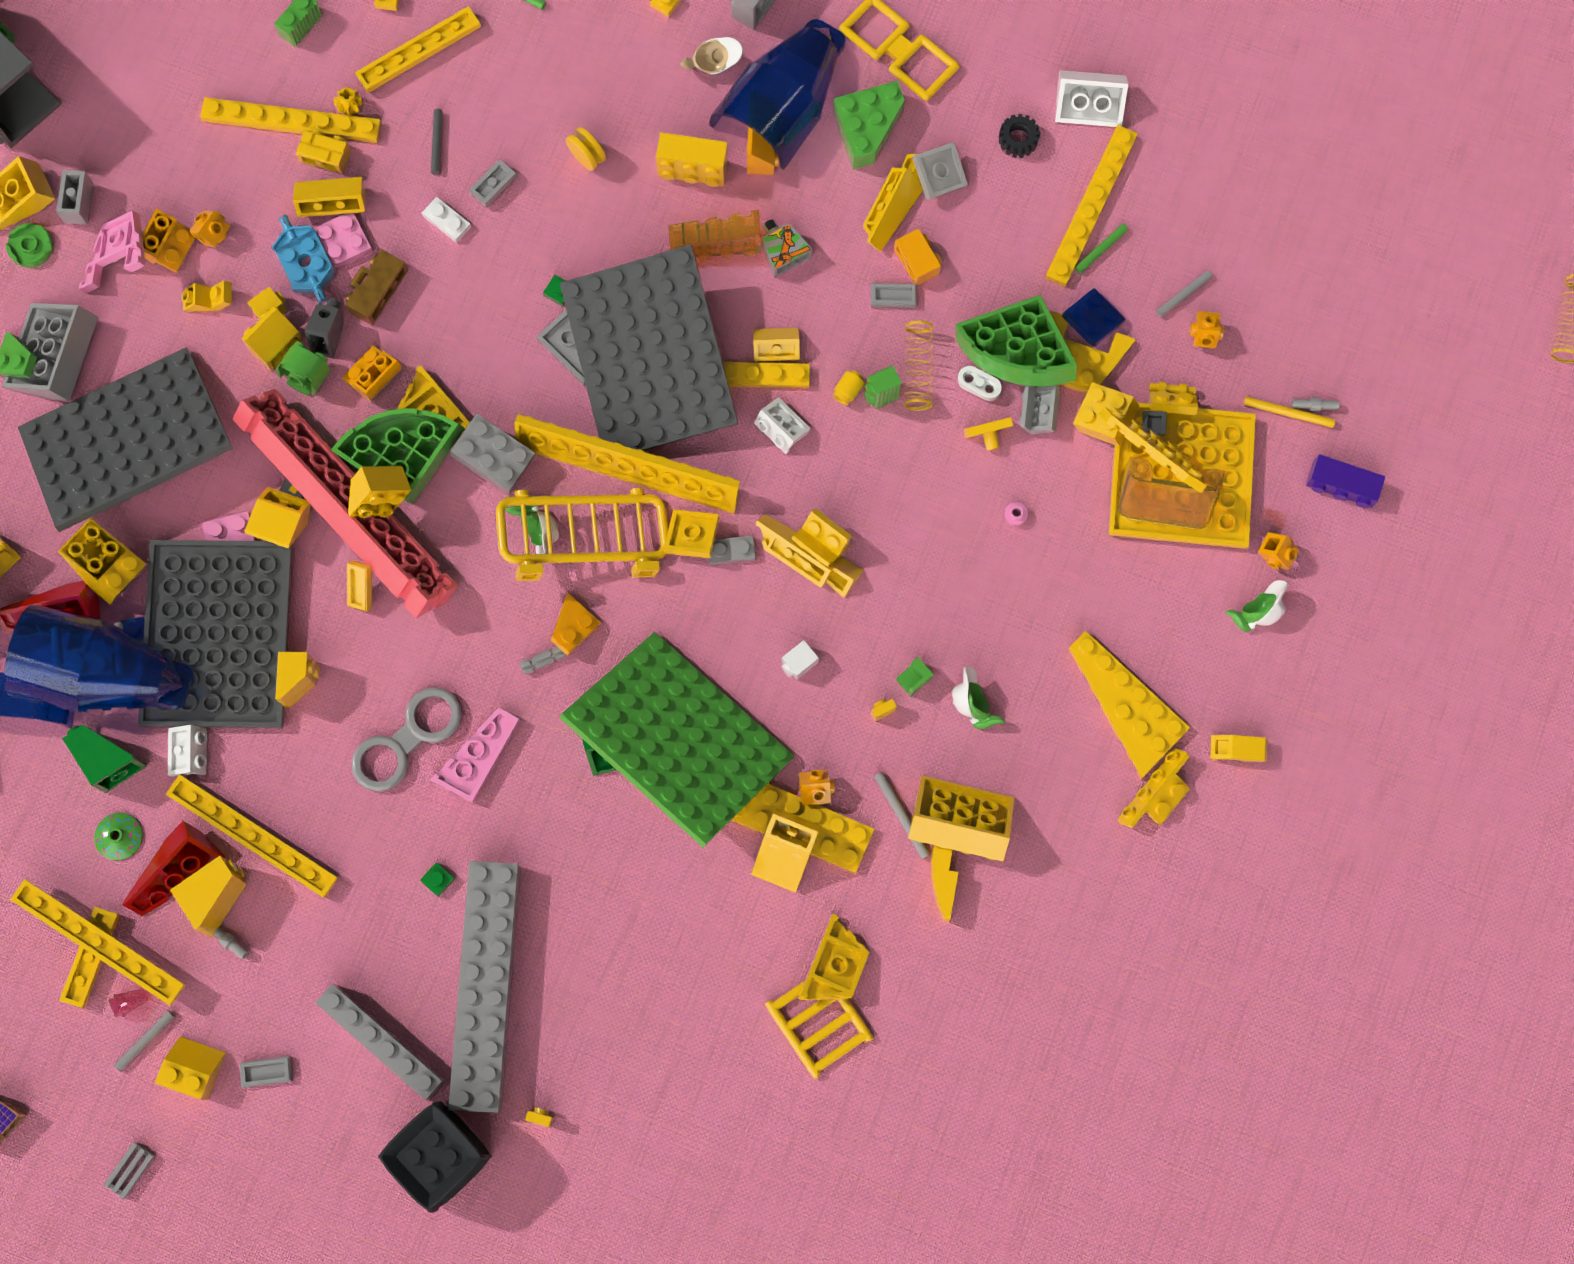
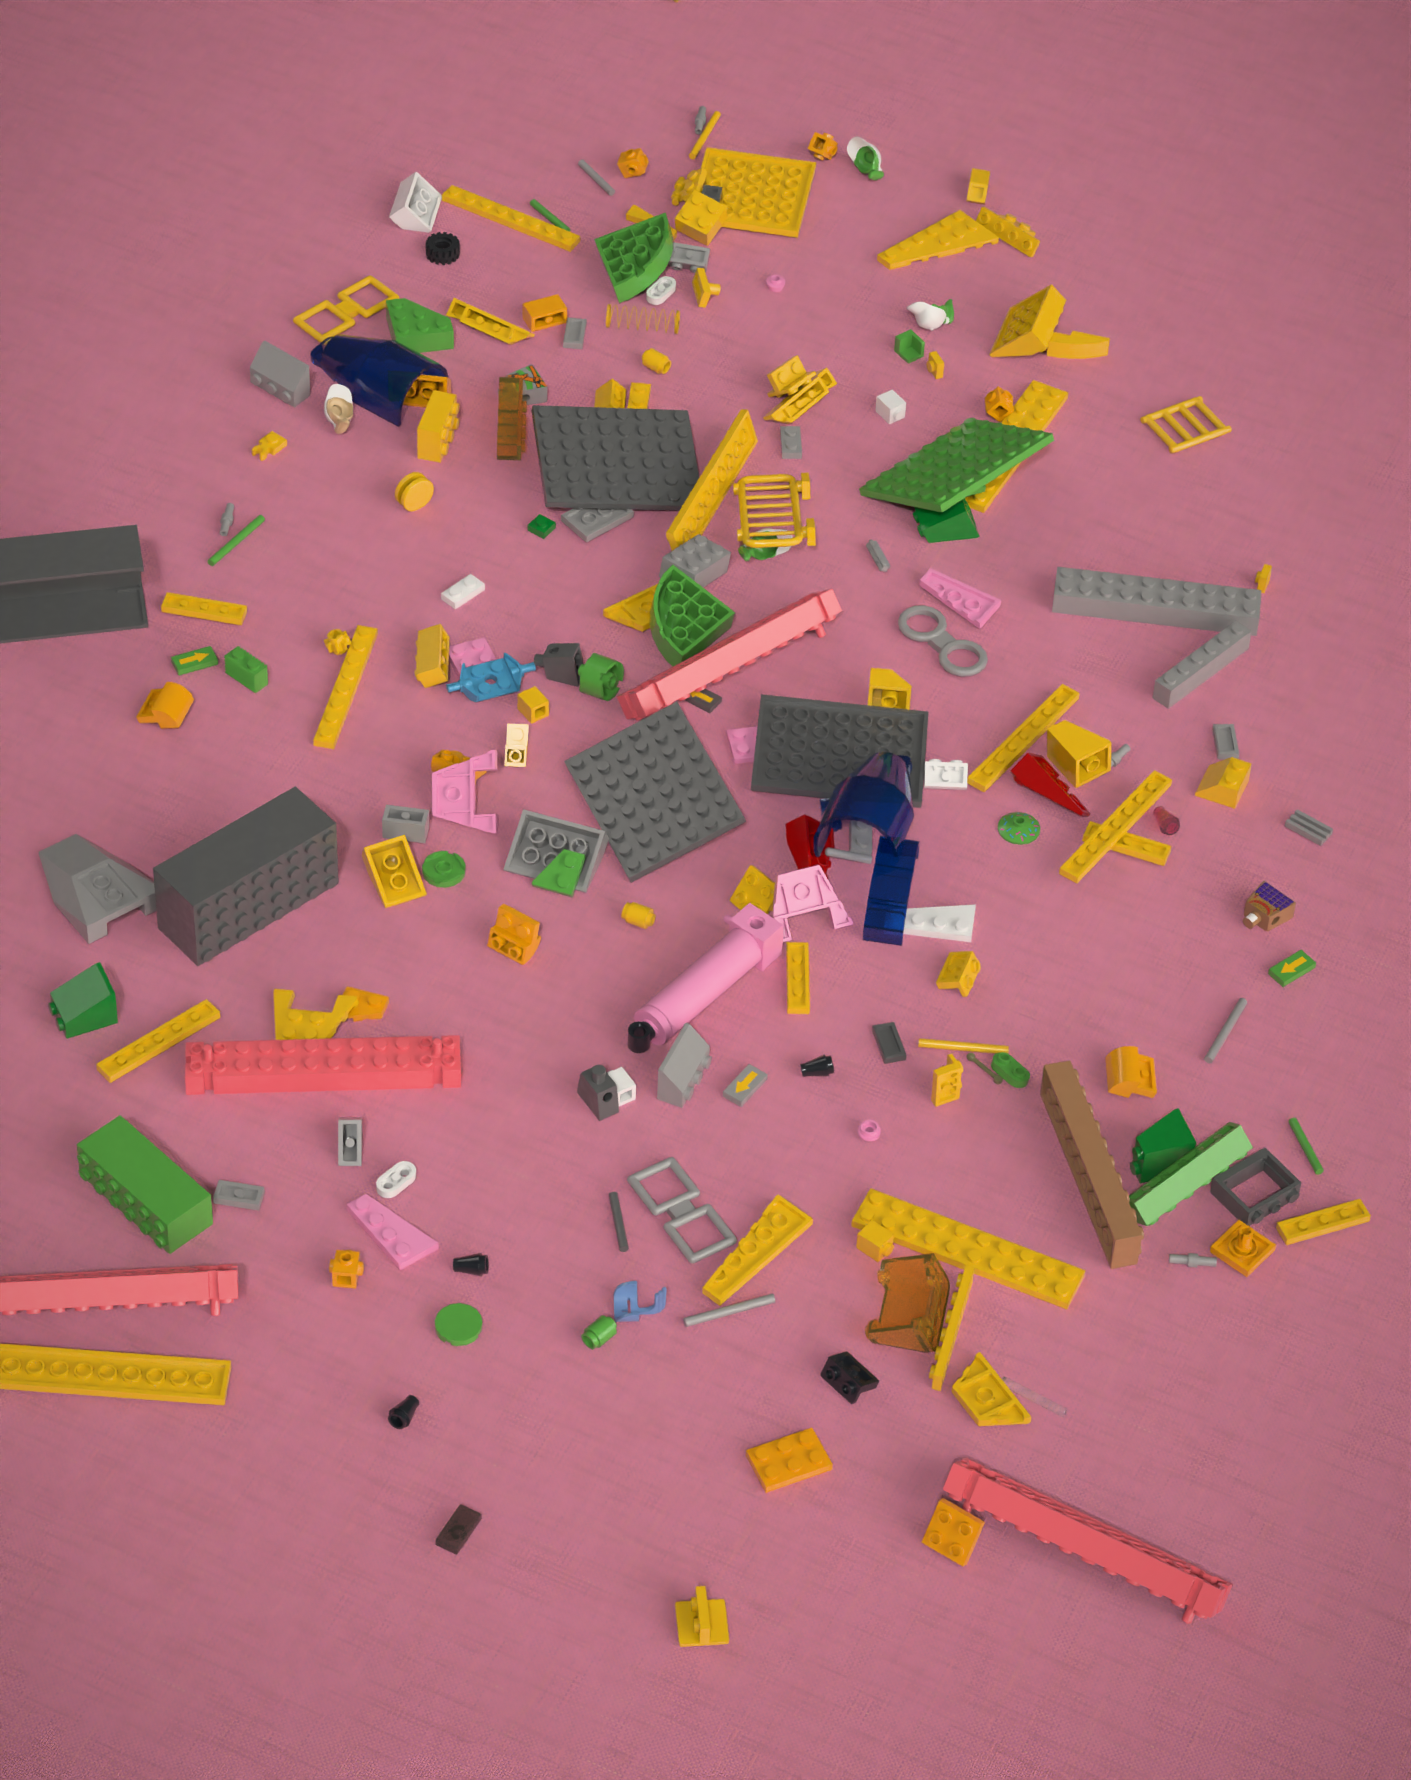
camera: 85 degrees left, 30 degrees down
(101, 561) = (778, 800): yellow slope -> none
(101, 759) = (952, 818): green slope -> none
(144, 1041) = (1199, 815): light grey bar -> none
(210, 228) = (451, 735): light orange brick -> none
(271, 338) = (567, 699): yellow slope -> none
(278, 517) = (739, 697): yellow slope -> none
(323, 151) = (384, 661): yellow brick -> none
(359, 585) = (806, 652): yellow tile -> none
(372, 373) = (608, 636): light orange brick -> none
(377, 491) = (732, 608): yellow slope -> none
(378, 287) = (522, 632): pearl gold piece -> none
(418, 49) = (292, 597): yellow plate -> none
(434, 1156) = (1297, 621): black piece -> none
(436, 141) = (384, 593): dark grey bar -> none
(437, 879) = (1064, 630): green plate -> none
(492, 183) = (433, 557): light grey plate -> none
(573, 625) = (850, 533): light orange wing -> none
(691, 533) = (777, 456): yellow plate -> none
(781, 425) = (688, 399): white bracket -> none
(785, 850) = (1051, 414): yellow slope -> none
(835, 965) = (1141, 405): yellow wing -> none
(882, 387) = (662, 333): bright green brick -> none
(900, 812) = (1021, 367): light grey bar -> none
(940, 170) = (470, 289): light grey plate -> none
(1093, 317) = (610, 222): clear blue plate -> none
(1164, 453) = (740, 179): yellow plate -> none
(1164, 500) = (775, 190): clear yellow windscreen -> none
(1345, 481) = (767, 110): dark purple brick -> none

